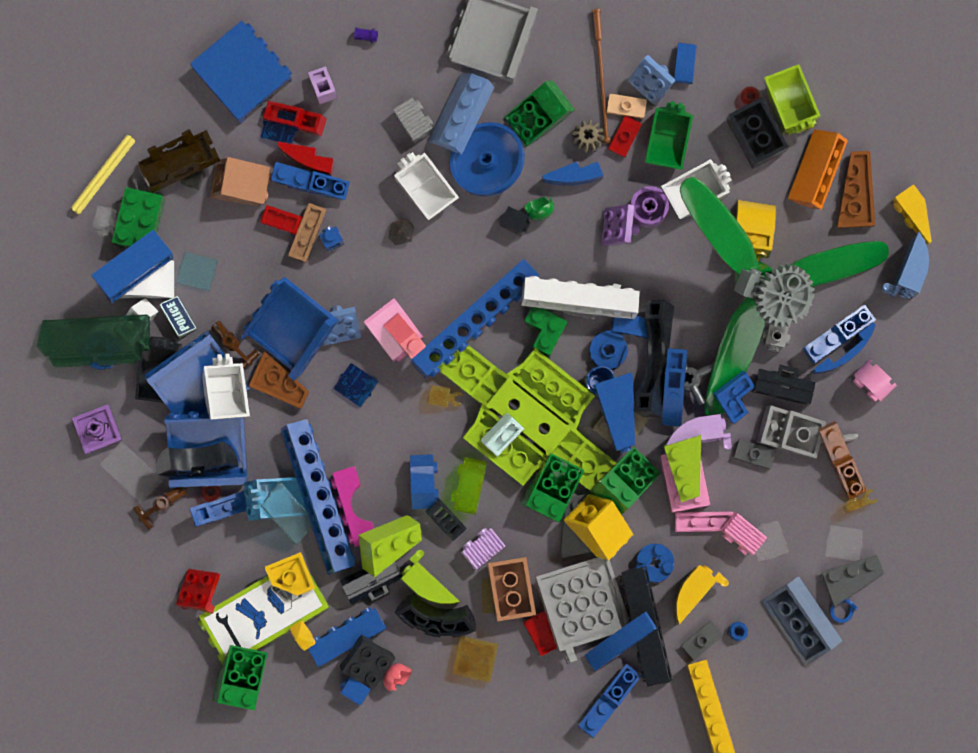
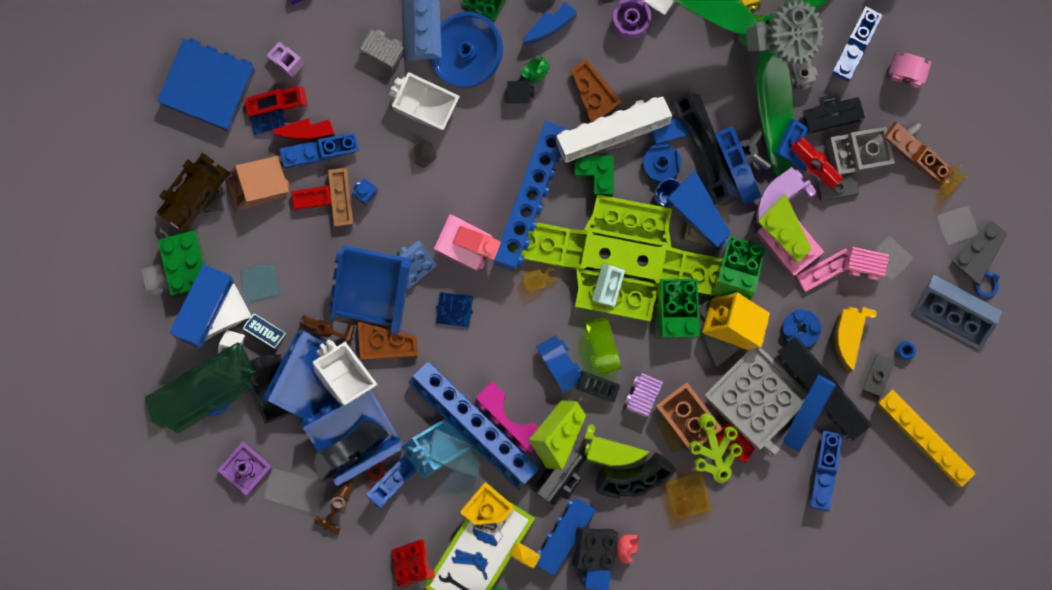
camera: 20 degrees left, 0 degrees up
(103, 174) = (130, 239): light yellow axle -> none
(520, 632) = (716, 451): none -> lime plant
(581, 255) = (594, 91): none -> dark orange wing
(619, 225) = (613, 48): medium lavender plate -> none
(749, 432) = (807, 154): none -> red piece
(863, 337) = (879, 36): blue slope -> none

